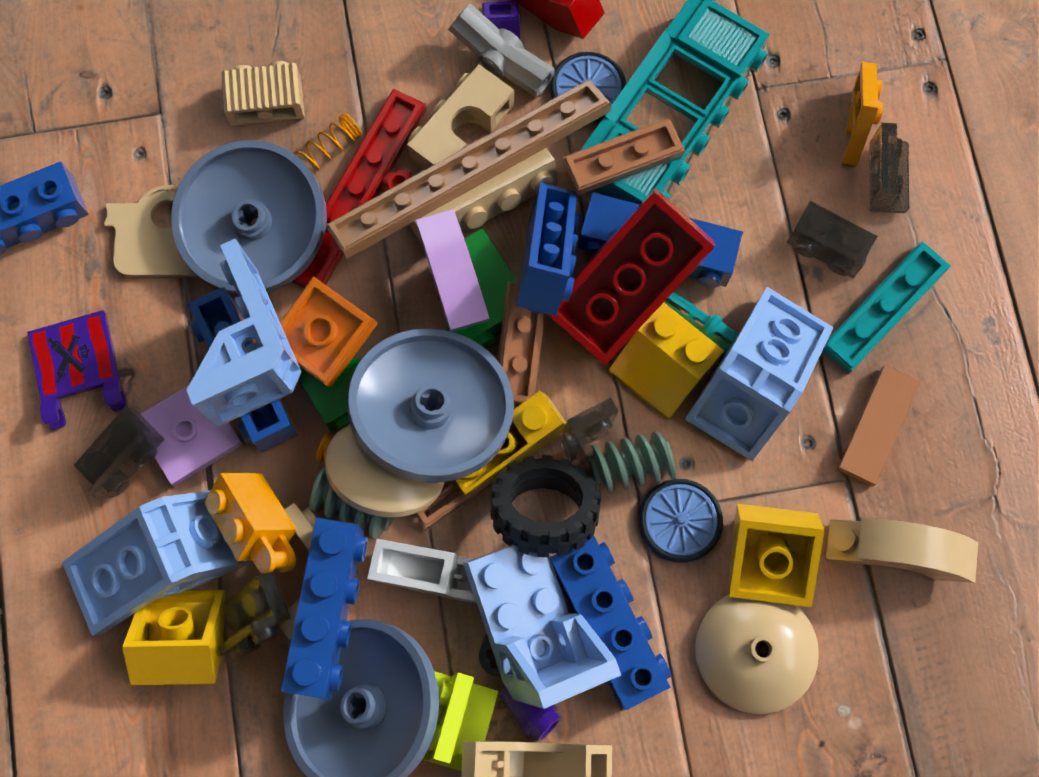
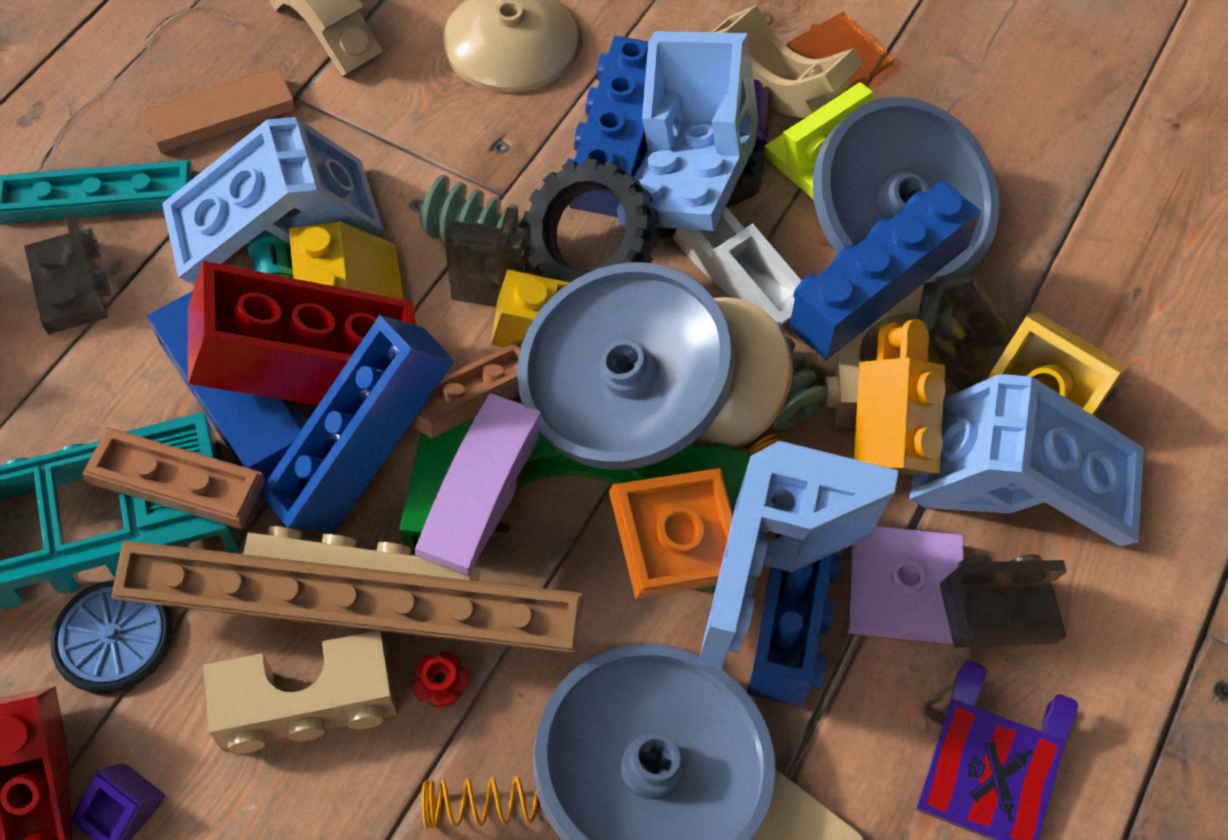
camera: 140 degrees left, 15 degrees down
(365, 174) = (449, 736): red tile -> none
(501, 52) = (163, 747): light grey piece -> none
(680, 520) = (475, 156): medium blue wheel -> none
(775, 555) = (420, 72): yellow slope -> none

